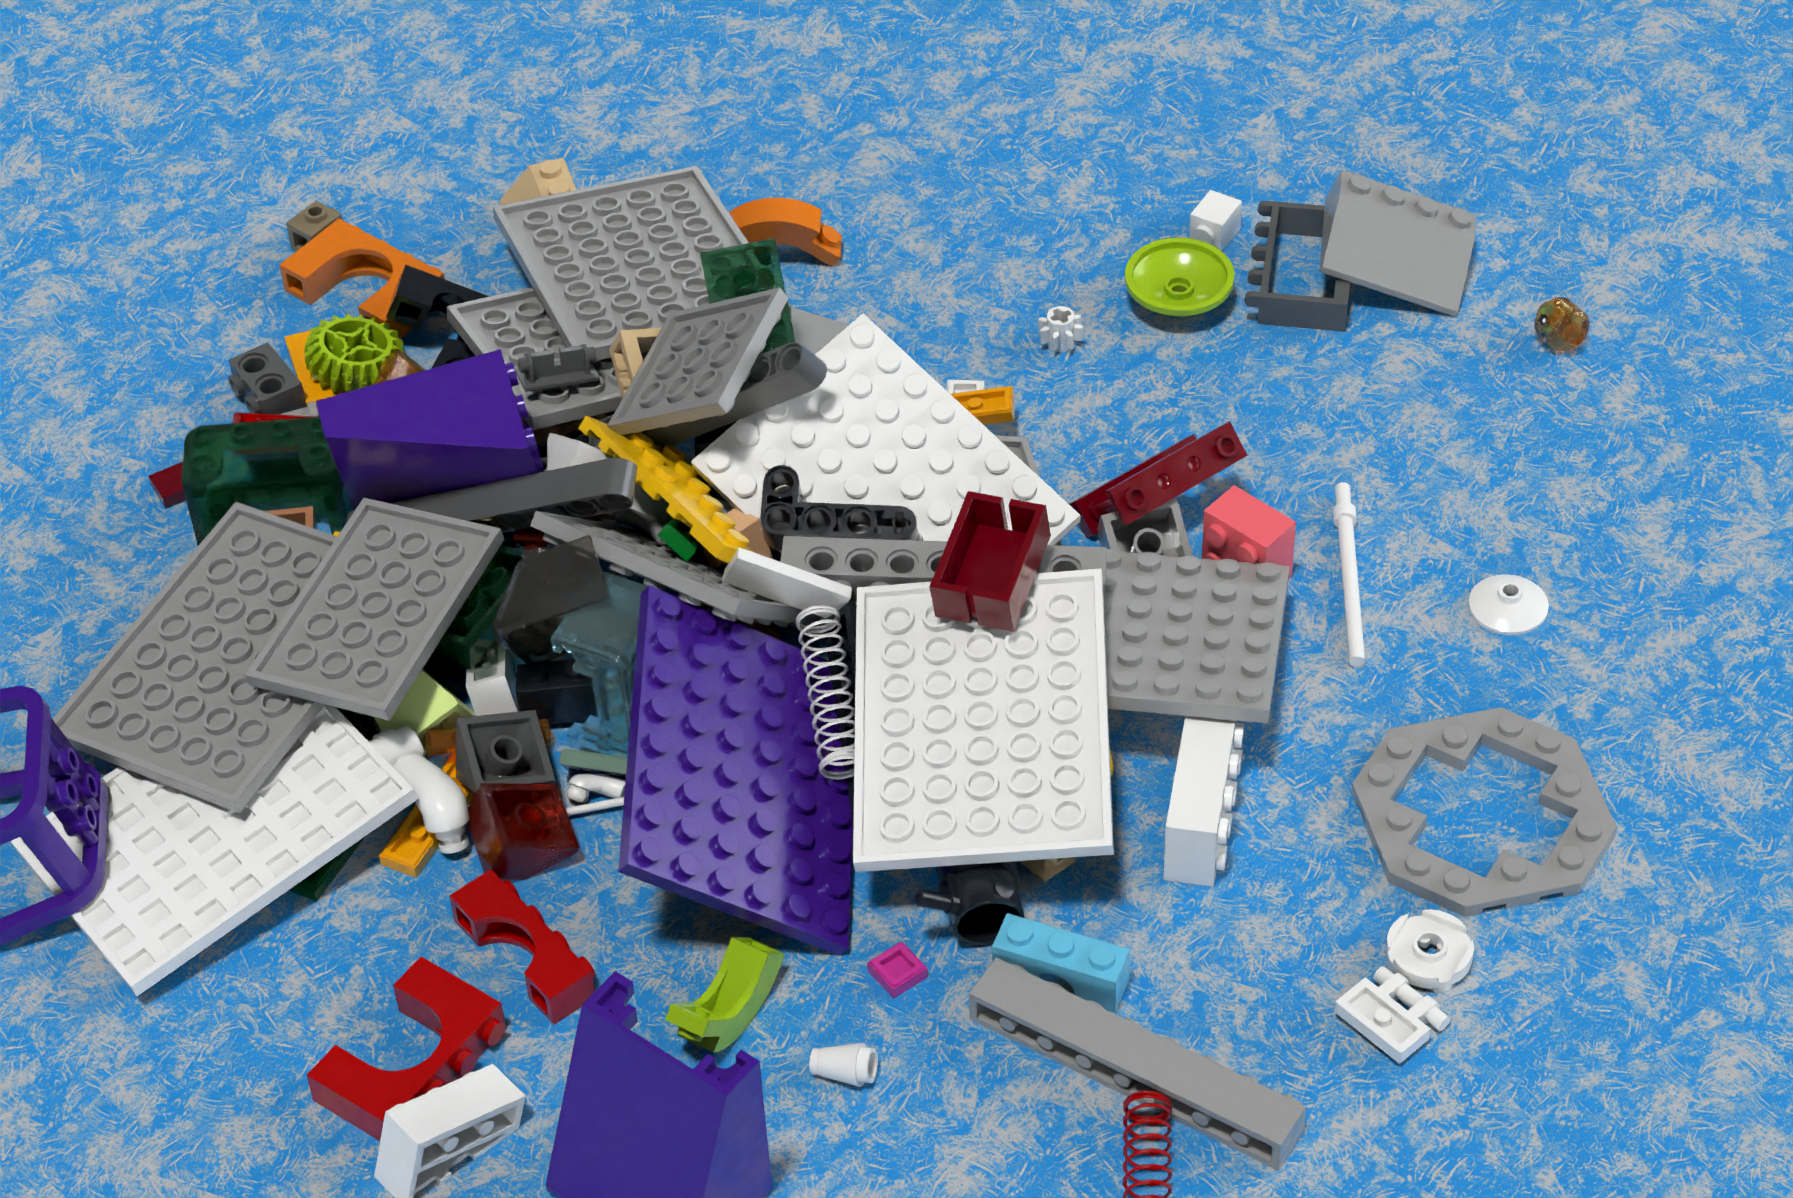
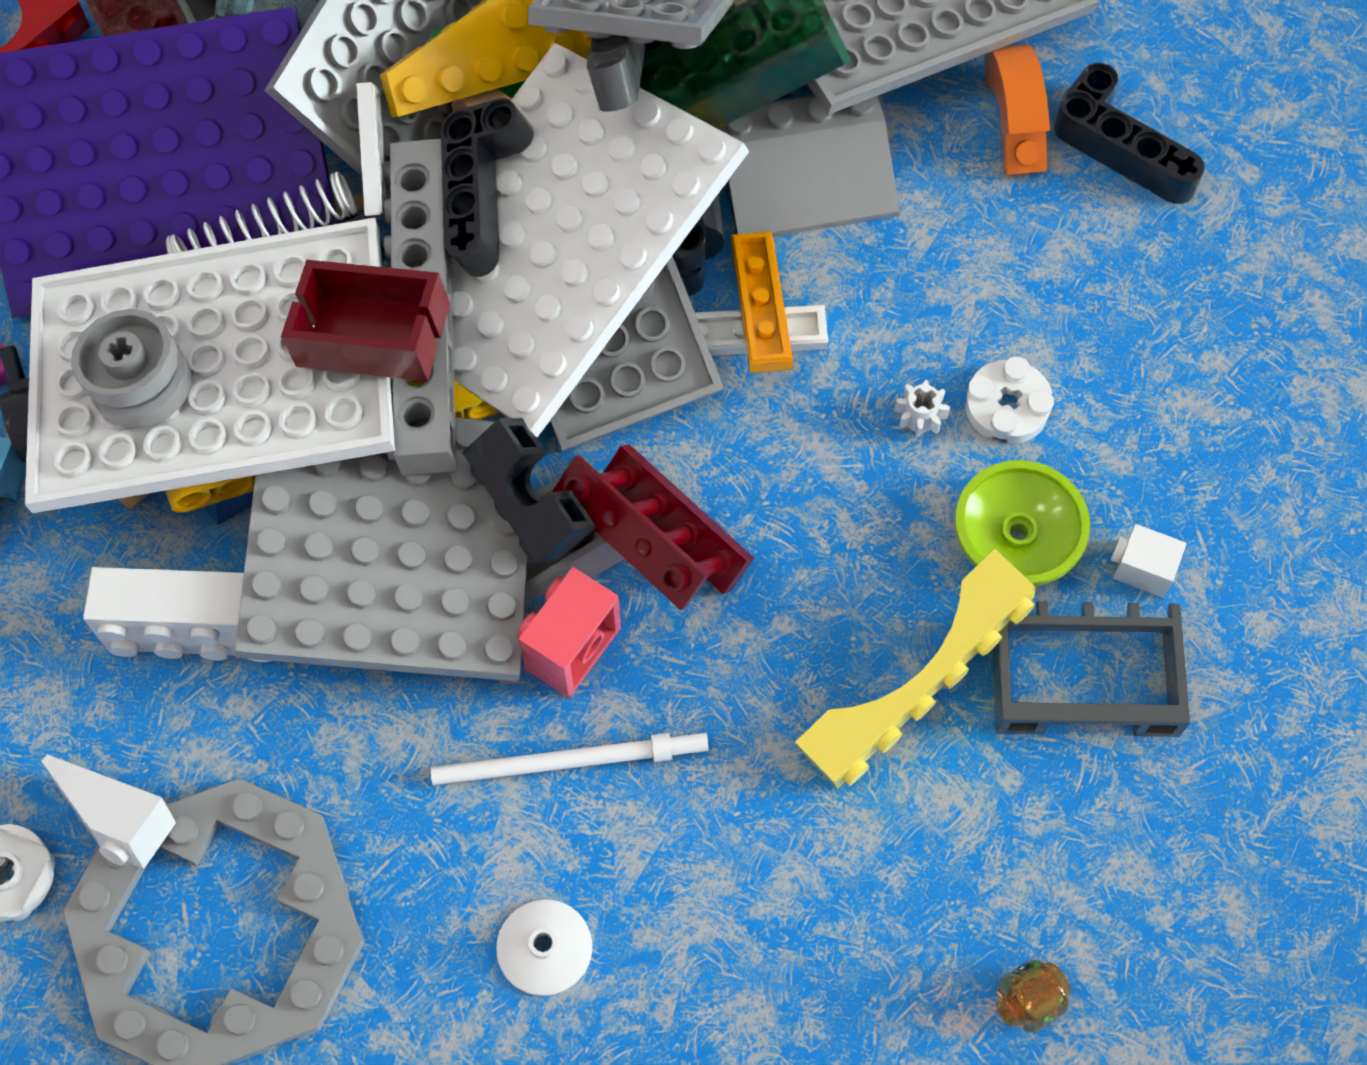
camera: 80 degrees right, 20 degrees up
(831, 180) = (1170, 168): none -> black beam
(998, 741) = (131, 368): none -> light grey wheel
(1063, 269) = (1003, 422): none -> white plate
(1164, 517) = (504, 463): none -> black arch
(1259, 291) = (849, 736): none -> light yellow arch
(1385, 855) = (120, 817): none -> white slope
(1396, 242) = (1124, 772): light grey slope -> none

